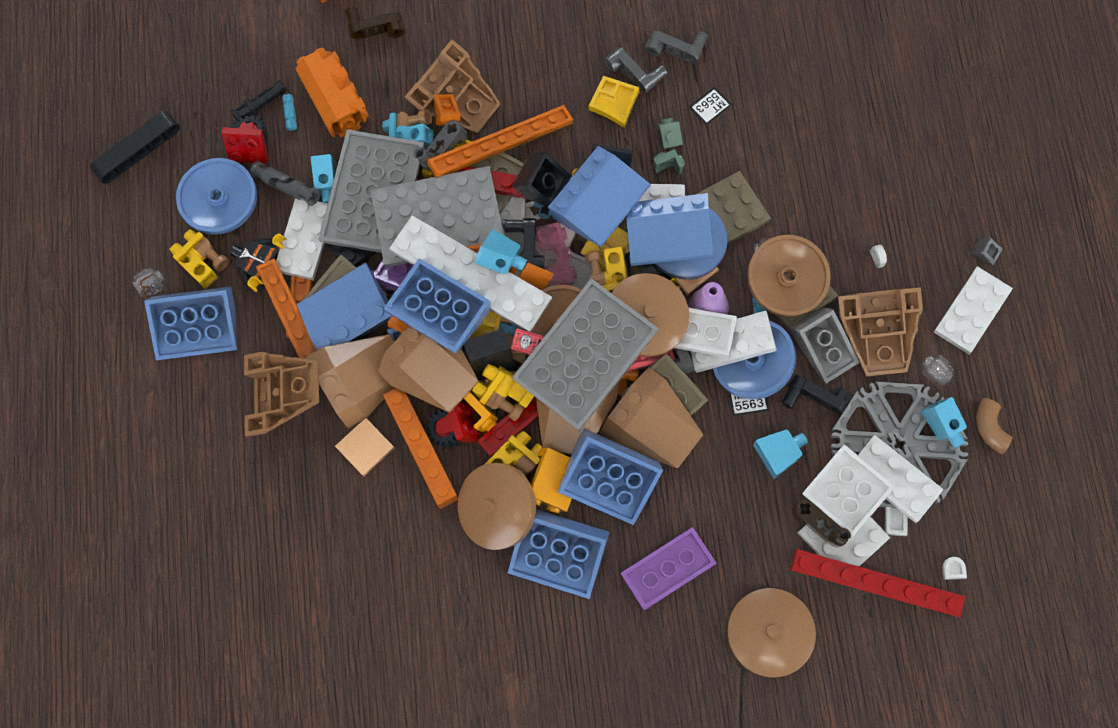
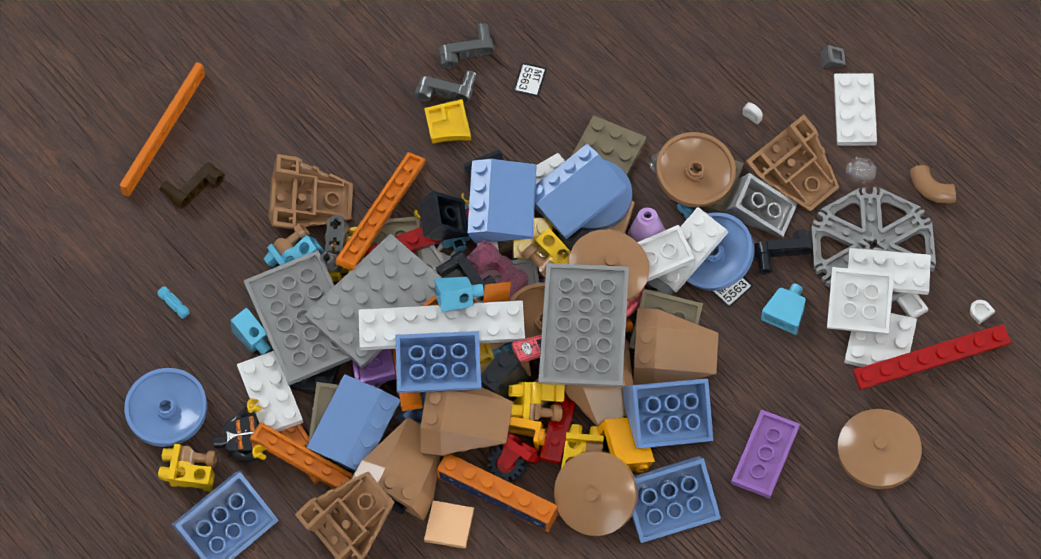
camera: 35 degrees left, 10 degrees down
(135, 147) = (57, 415): black beam -> none
(148, 282) = (159, 514): clear head -> none
(246, 140) = (158, 345): red plate -> none
(251, 106) = (136, 317): black pin -> none
(285, 183) = (221, 358): dark grey piece -> none
(331, 92) = (203, 262): orange brick -> none
(445, 109) = (315, 214): orange slope -> none
(665, 160) = (527, 143): sand green bracket -> none
(670, 133) = (514, 120): sand green bracket -> none
(814, 513) = (847, 337): dark brown beam -> none
(945, 421) = (895, 202): medium azure torso -> none

